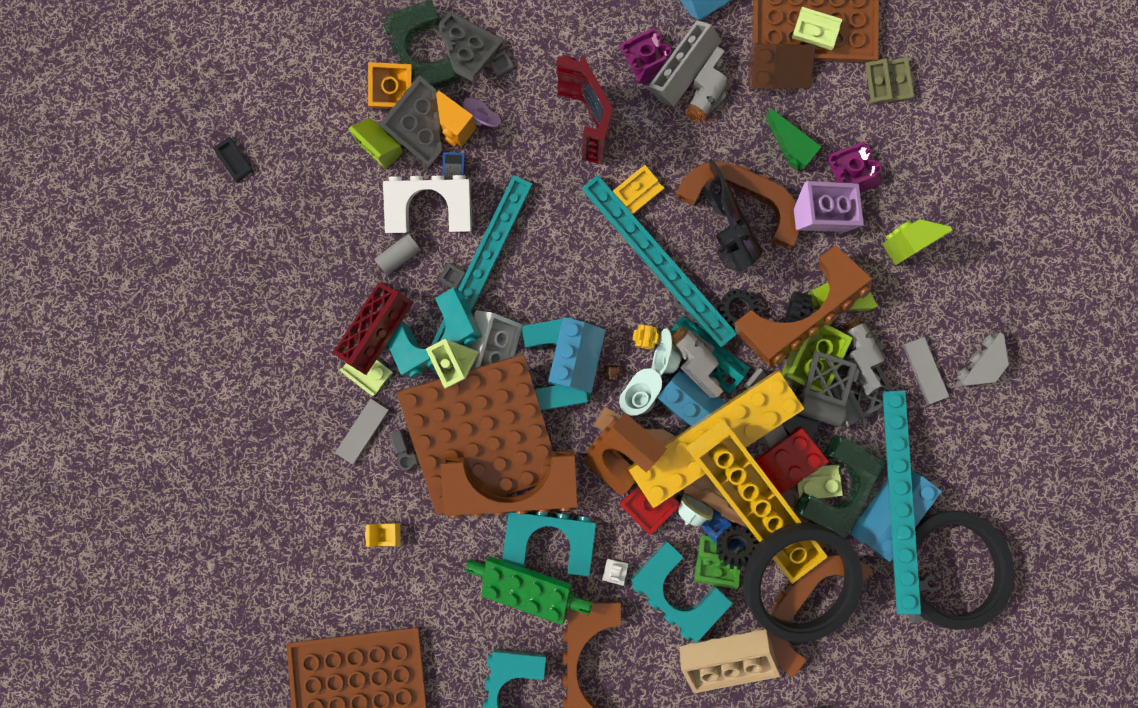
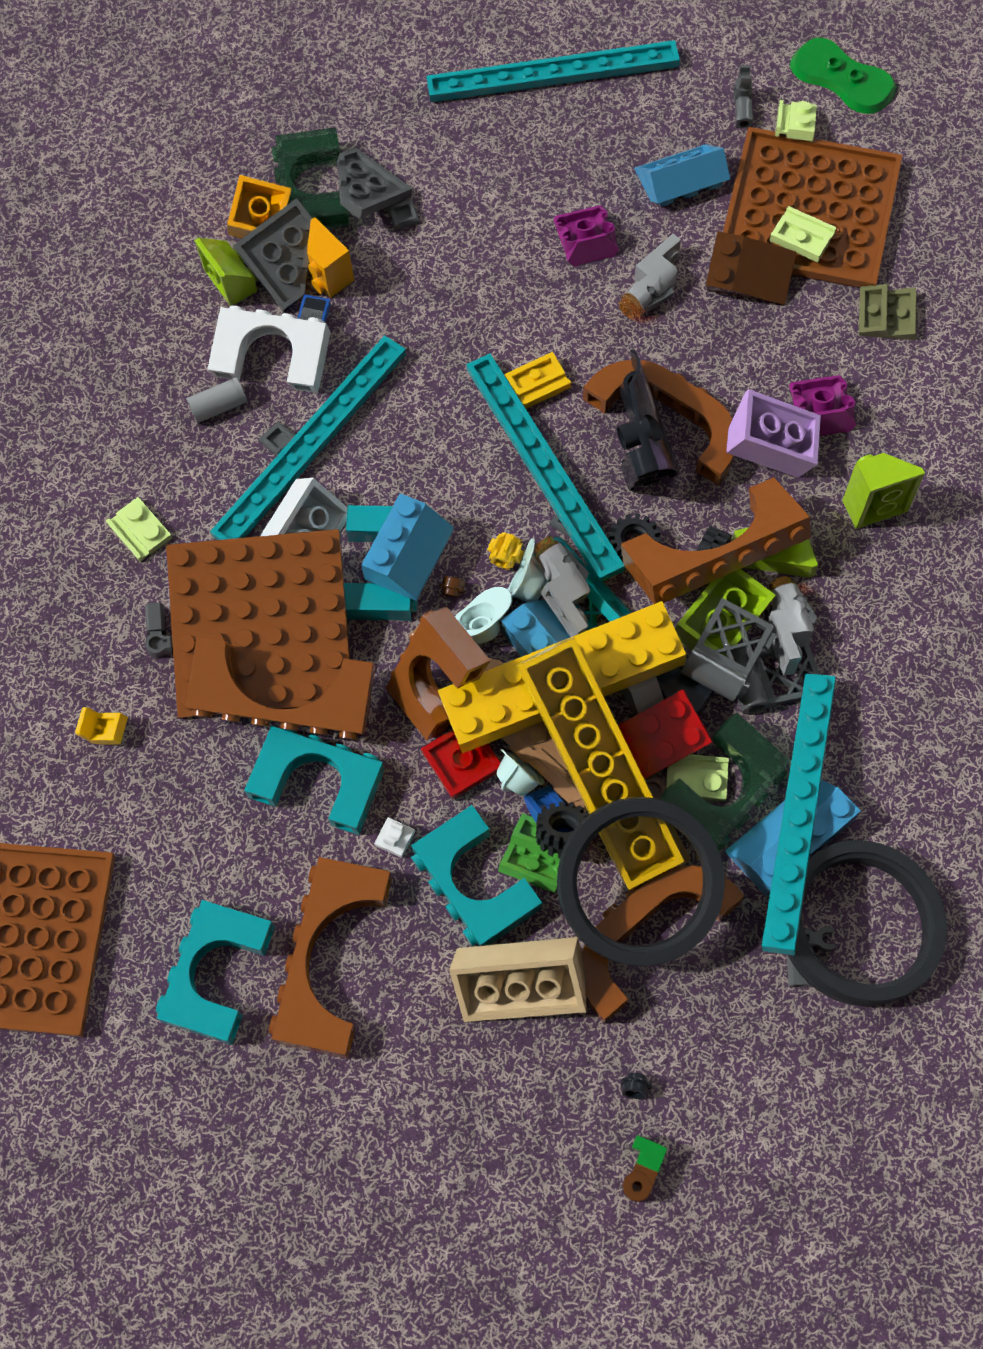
camera: 15 degrees right, 15 degrees down
(233, 159) = (50, 263): black tile -> none
(362, 431) = (112, 599): light grey tile -> none
(376, 336) = (162, 474): dark red fence -> none
(451, 361) = (244, 517): yellowish green slope -> none
(459, 328) = (264, 494): teal arch -> none
(481, 113) = (362, 260): lavender dish -> none
(527, 590) = (270, 828): green plate -> none
(580, 83) = (490, 248): dark red panel -> none
(685, 63) = (627, 247): light grey brick -> none
(794, 144) = (750, 362): green slope -> none
(925, 370) = (871, 664): light grey tile -> none
(986, 364) = (952, 669): light grey slope -> none

